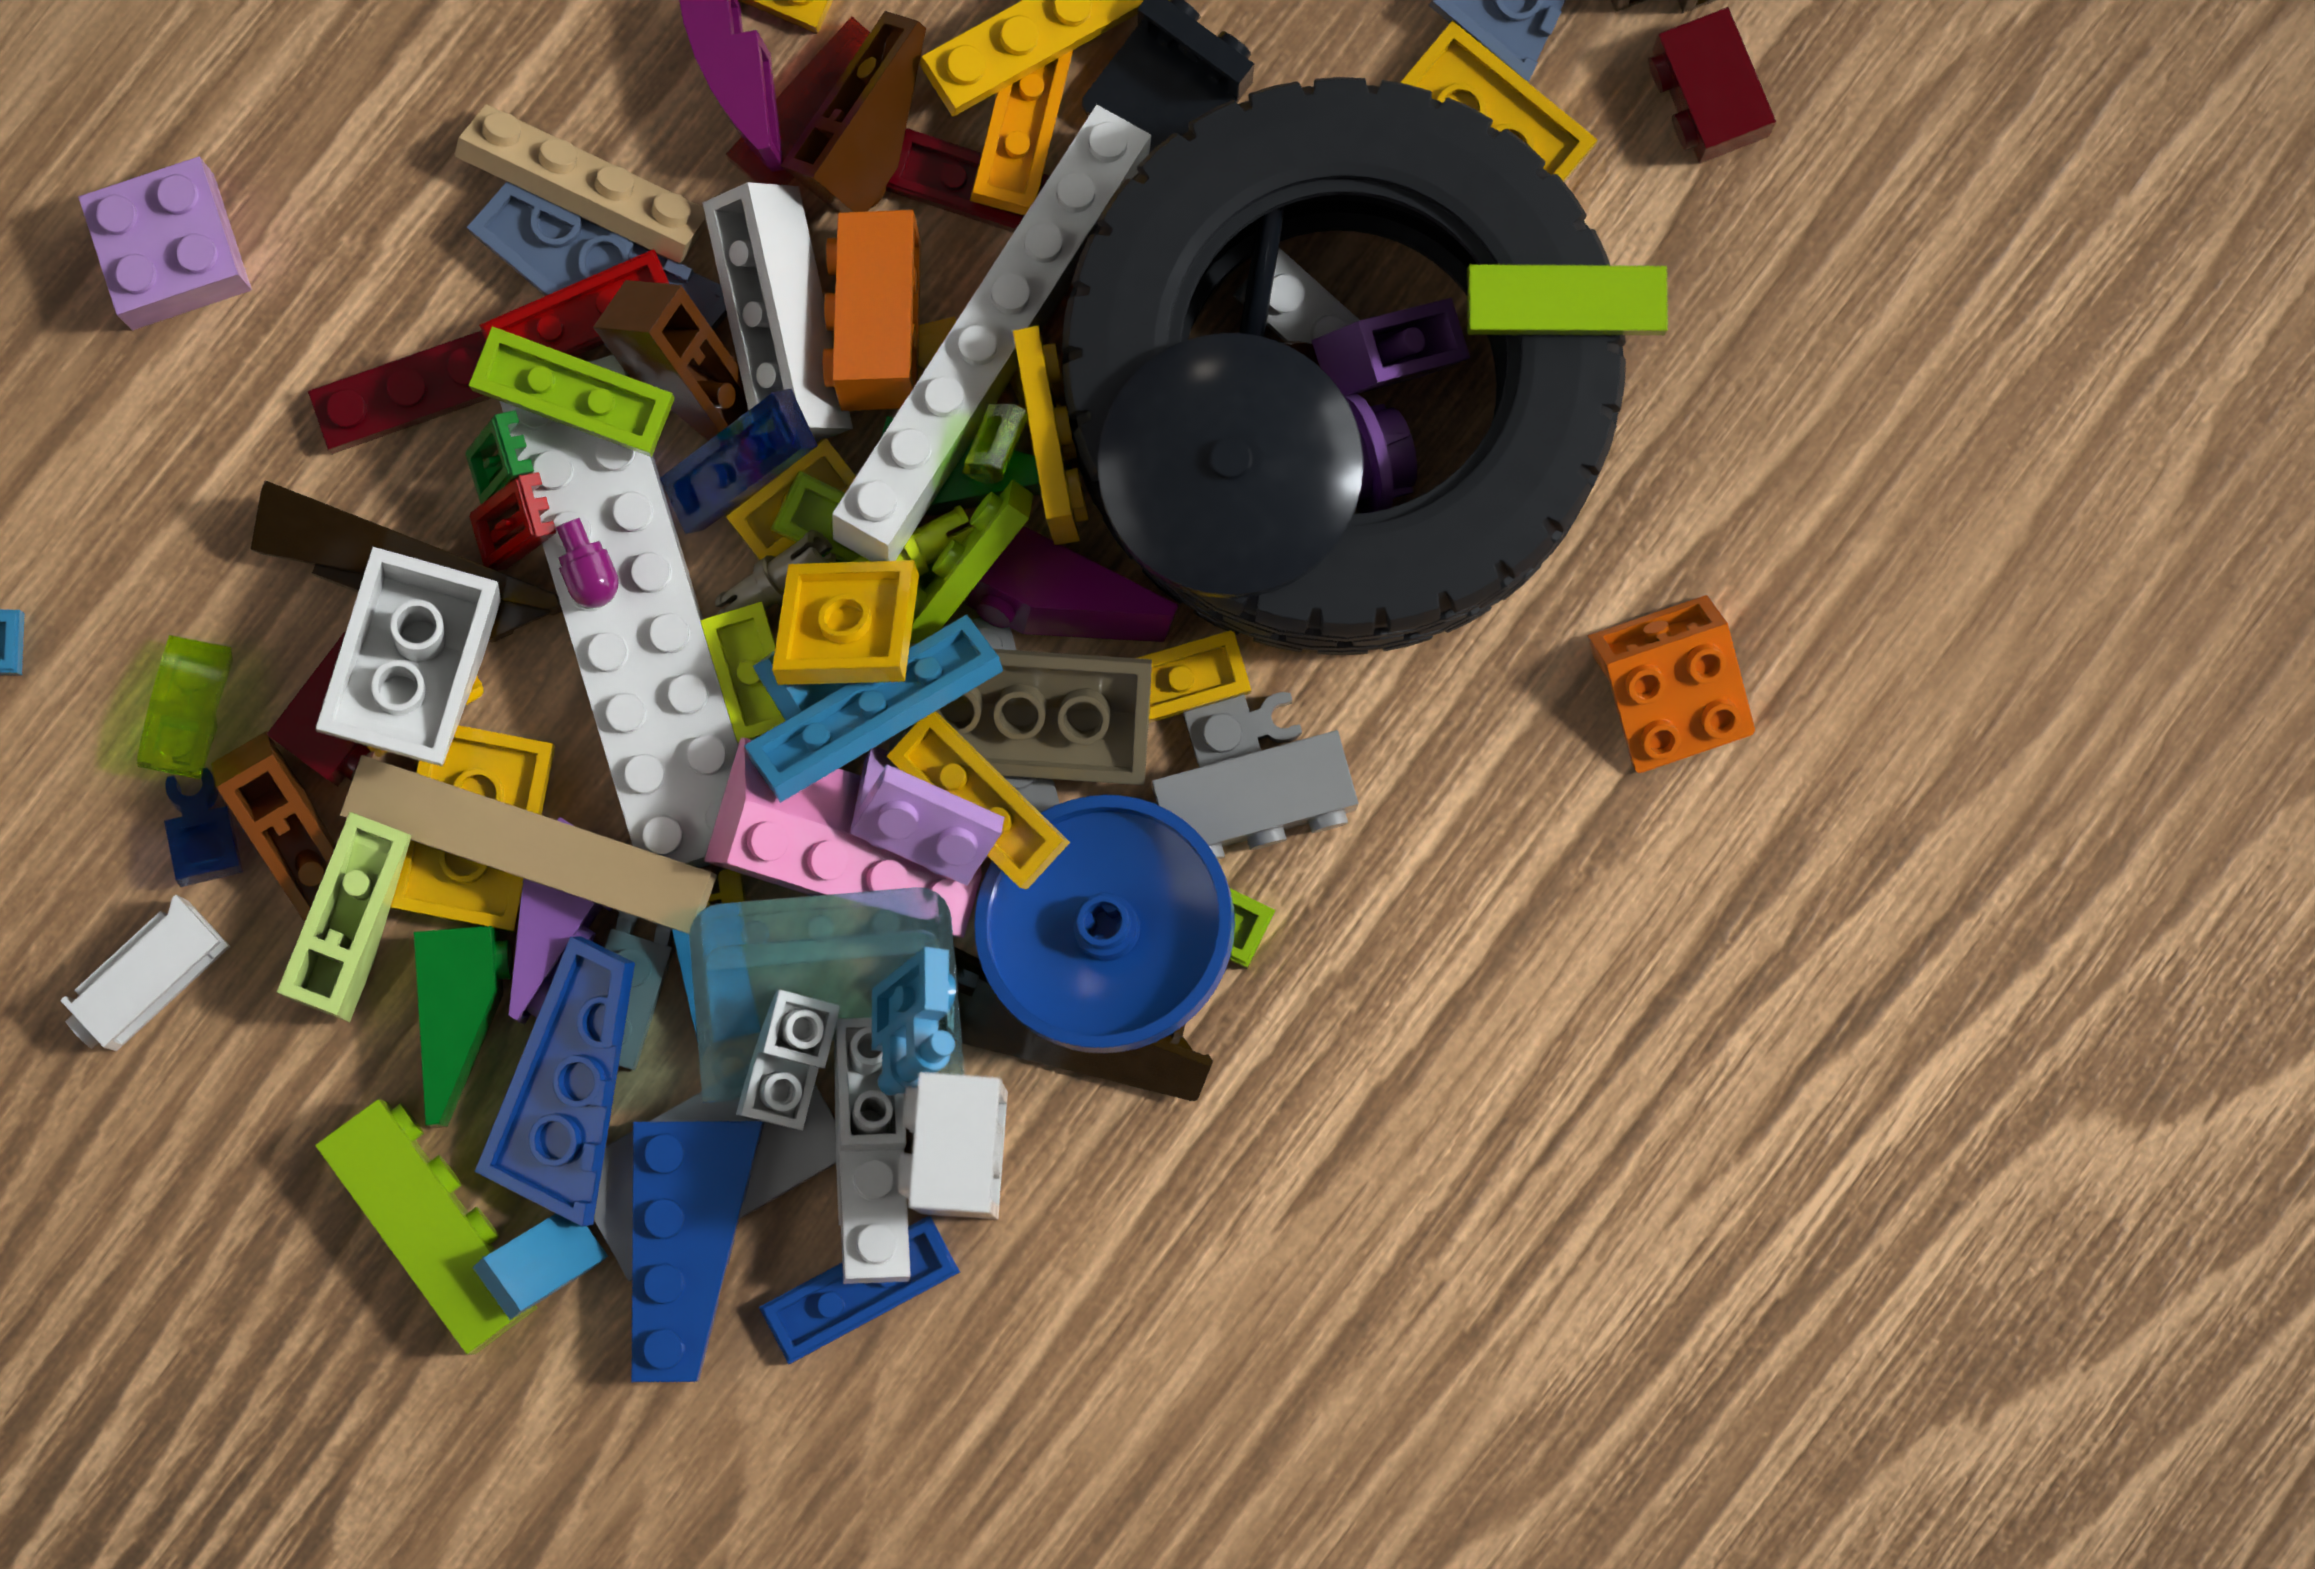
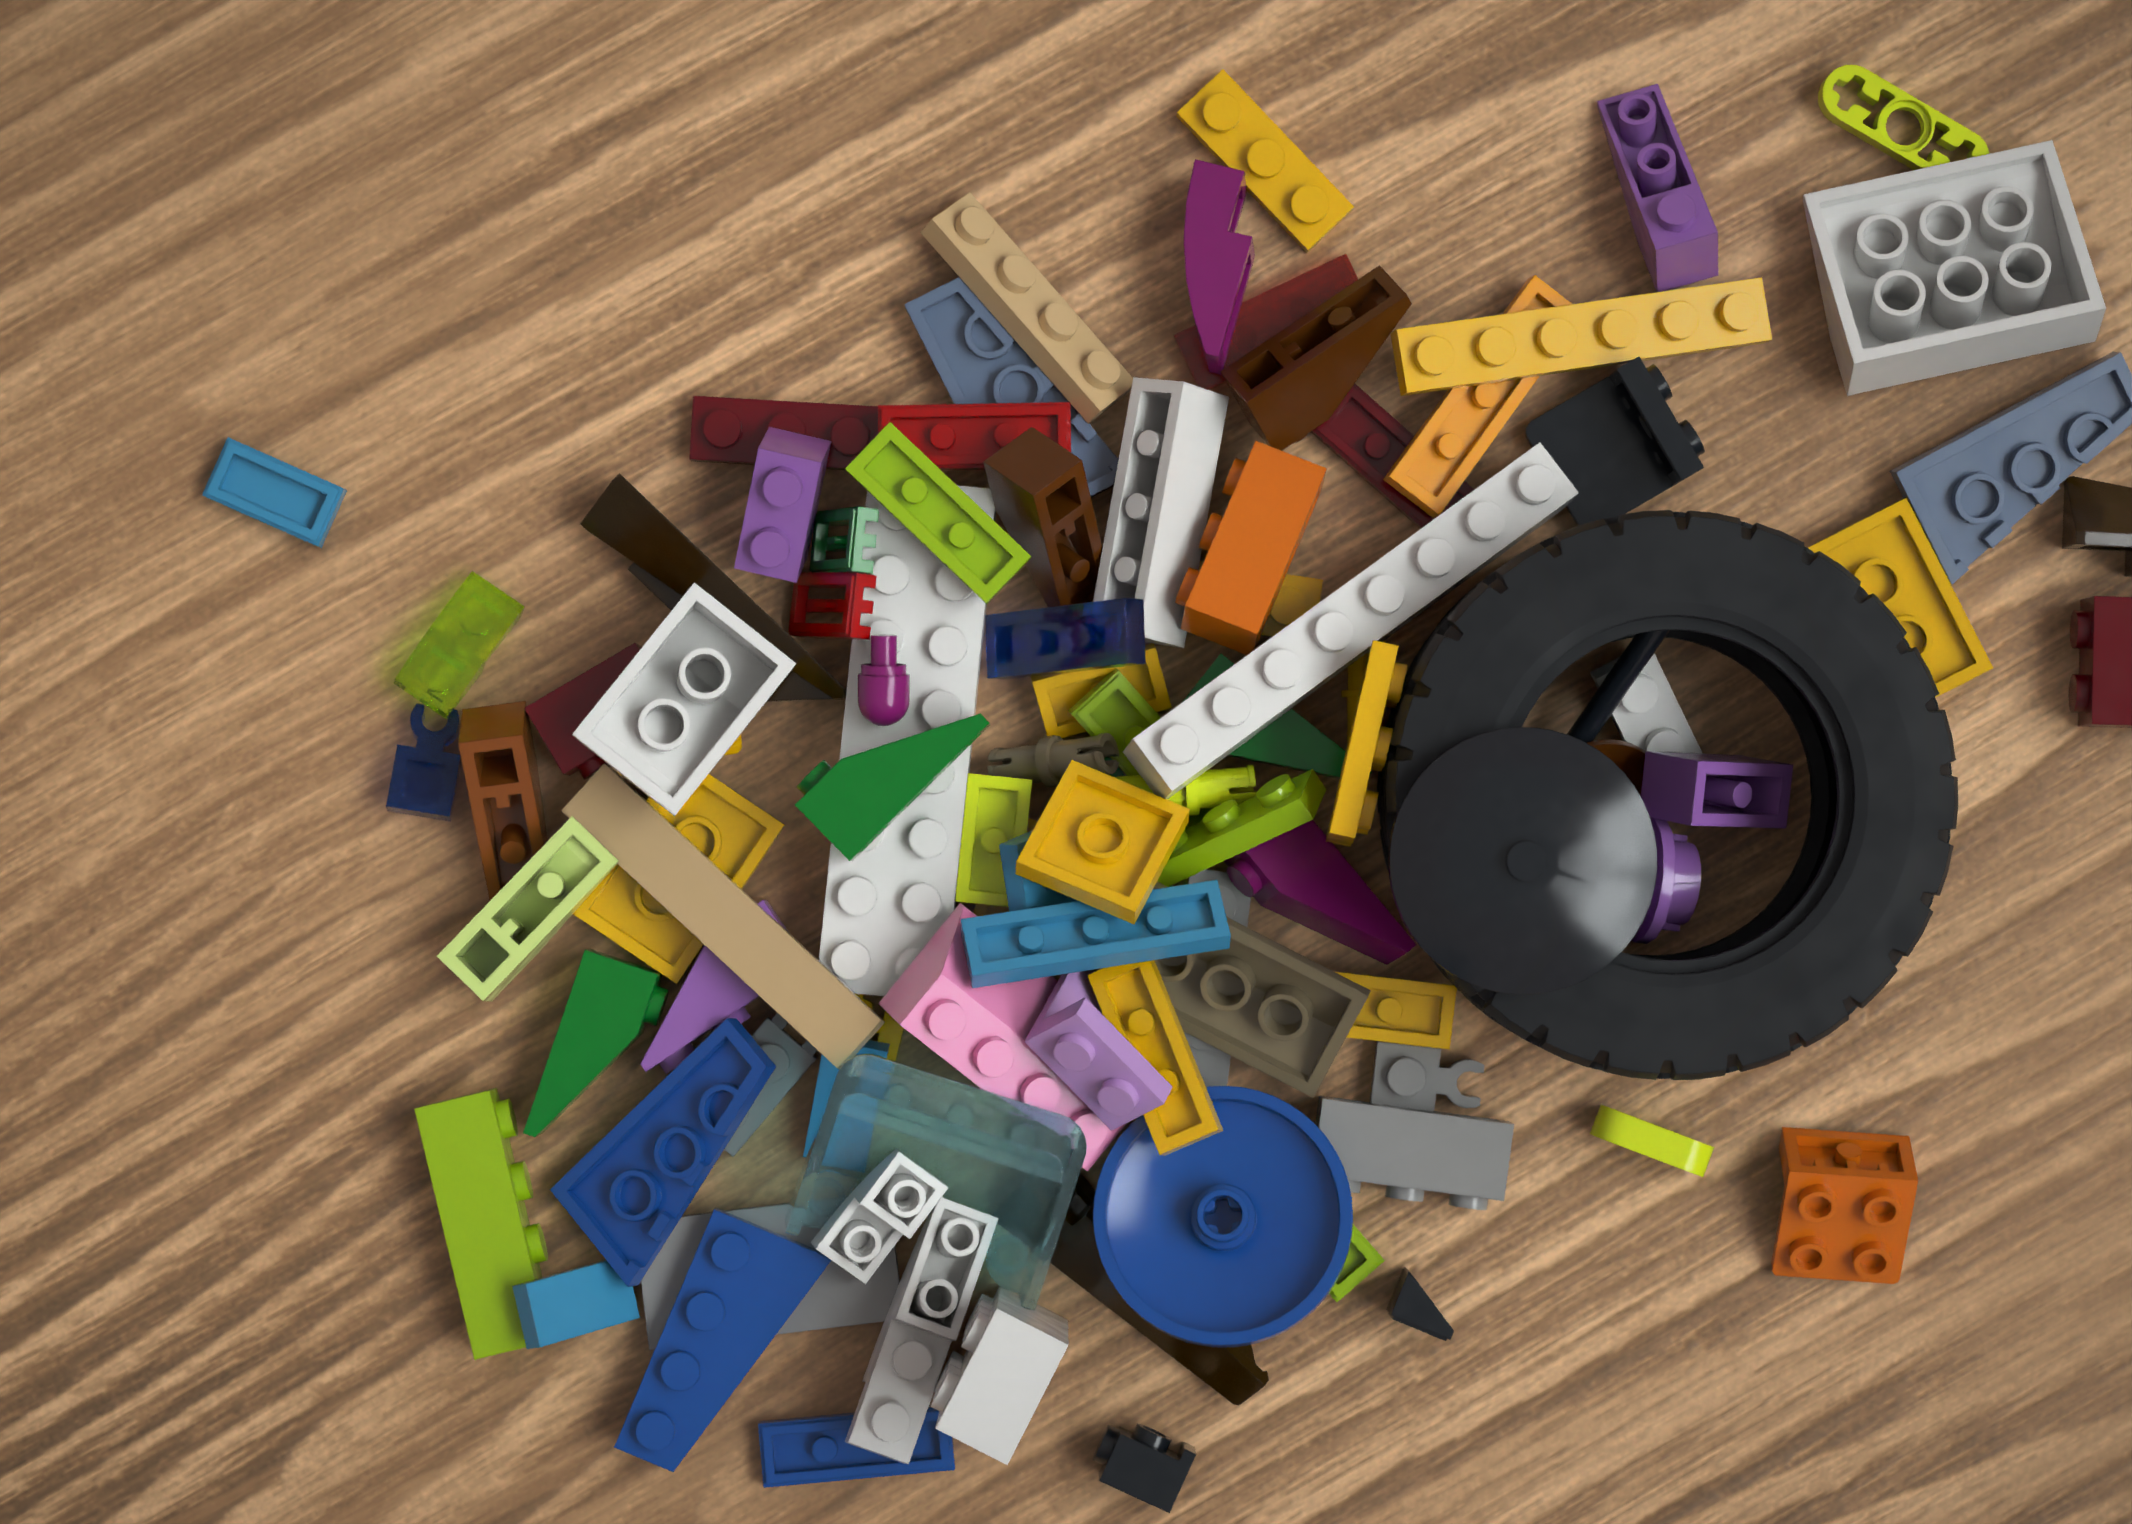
camera: 20 degrees right, 5 degrees up
(143, 976) = (320, 880): white window -> none
(165, 243) = (617, 201): lavender brick -> none
(428, 450) = (782, 504): none -> medium lavender brick
(618, 659) = (872, 788): none -> green slope
(907, 1018) = (1004, 1234): dark azure plate -> none
(995, 443) = (1310, 730): clear neon green slope -> none
(1130, 1190) = (1143, 1464): none -> black brick
(1323, 940) = (1415, 1308): none -> black slope
(1472, 696) = (1651, 1140): none -> neon yellow beam
(1567, 300) = (1903, 839): lime tile -> none

